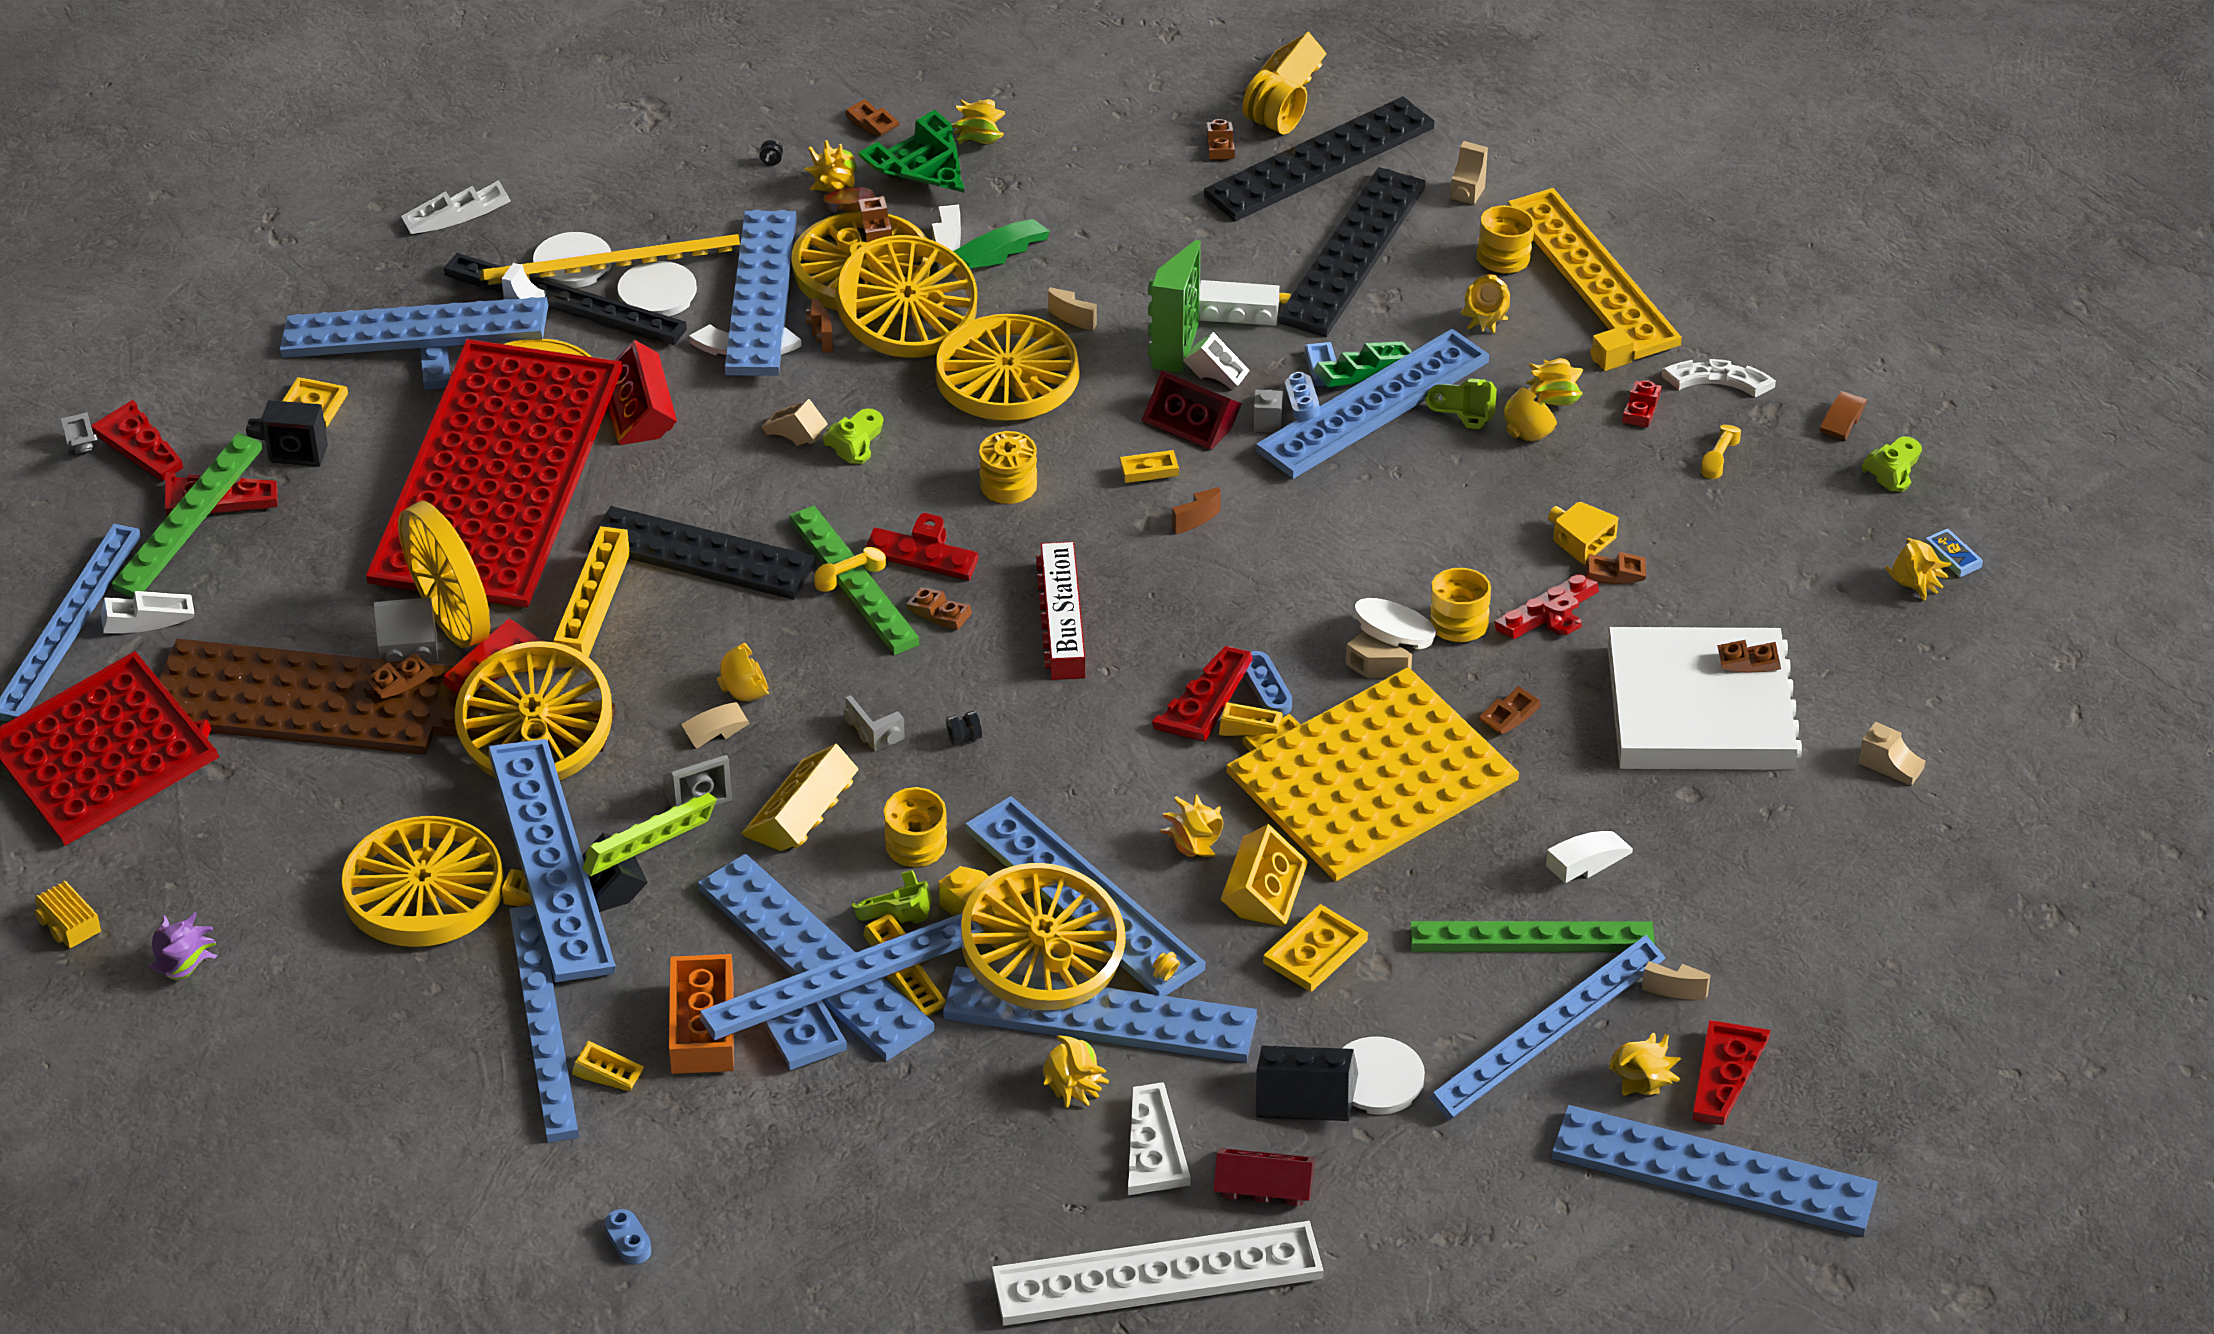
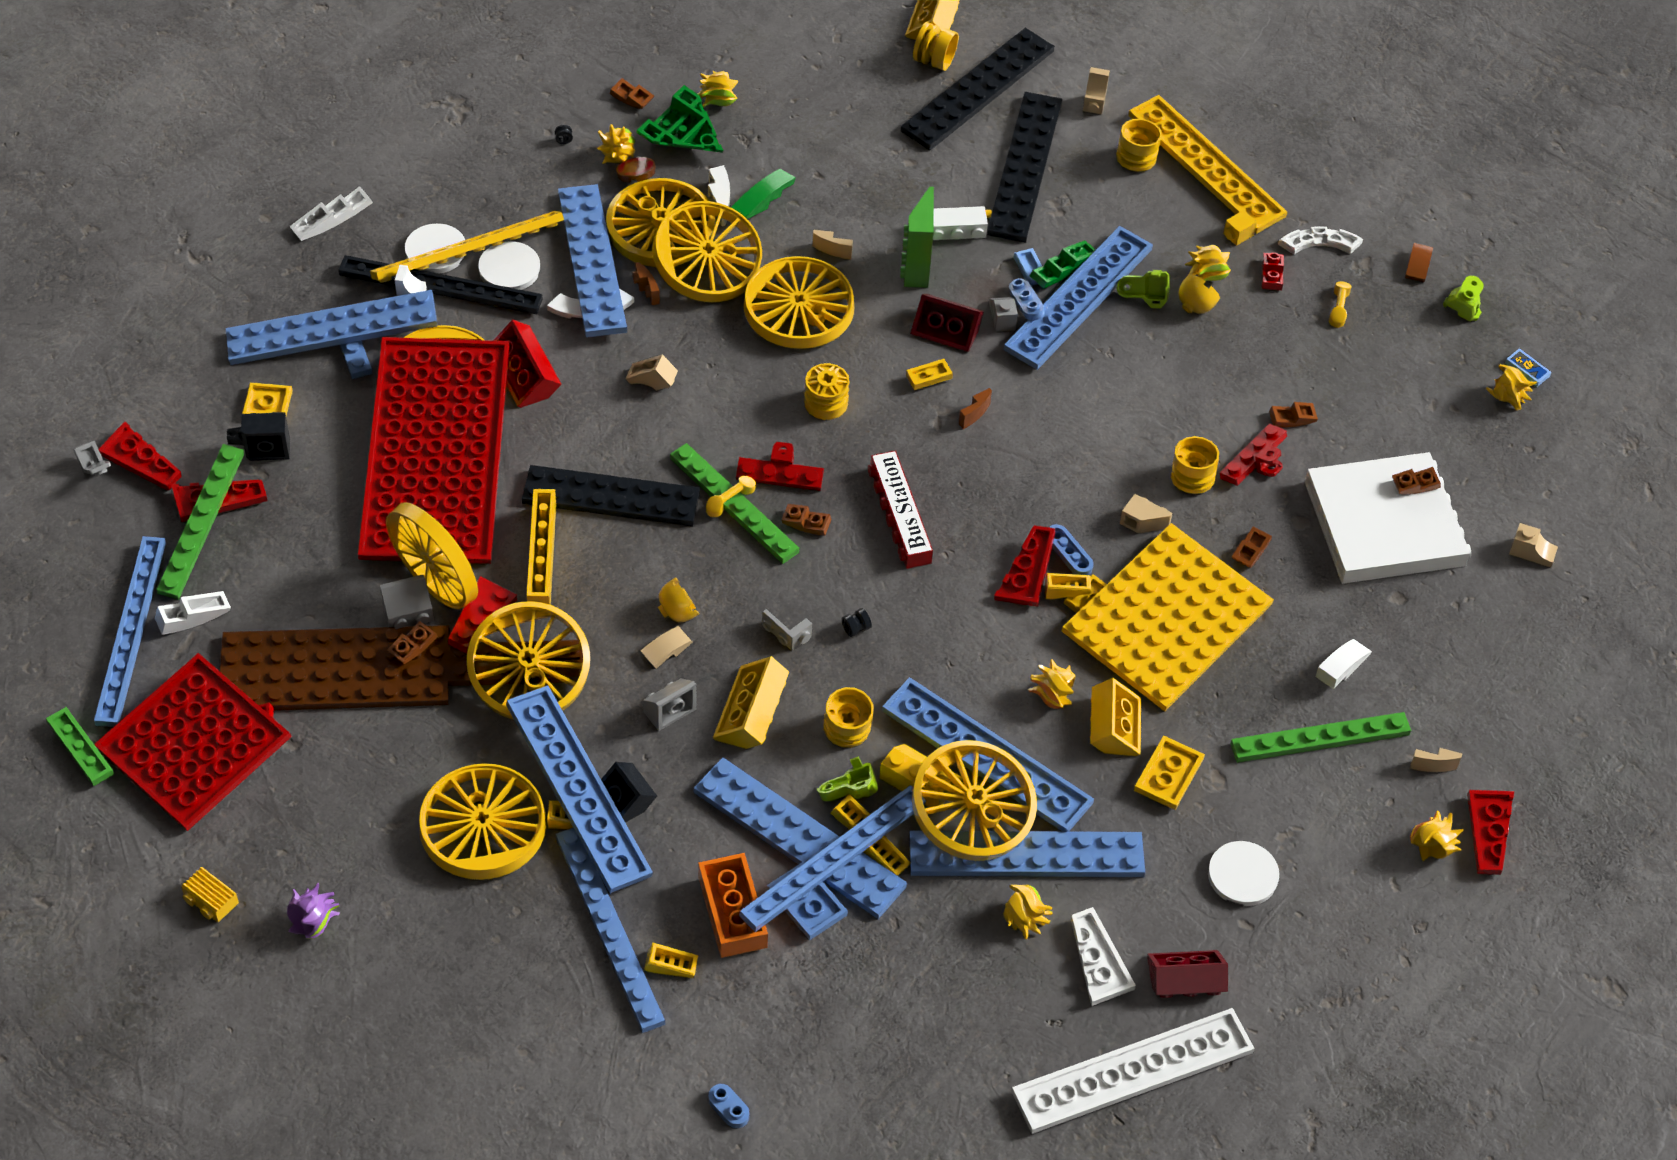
camera: 15 degrees left, 10 degrees up
(648, 834) = (647, 761): lime plate -> none
(854, 435) = (698, 377): lime piece -> none
(875, 218) = (664, 186): dark orange slope -> none
(1165, 966) = (1069, 809): yellow plate -> none
(1216, 361) = (953, 276): arch -> none
(1220, 139) = (900, 81): dark orange slope -> none
(1305, 1083) = (1198, 892): black slope -> none
(1393, 623) = (1150, 487): white tile -> none
(1486, 302) = (1141, 201): yellow hair -> none
(1545, 1028) = (1355, 815): medium blue plate -> none
(1583, 529) = (1261, 386): yellow torso -> none
(1715, 1170) = (1505, 913): medium blue plate -> none

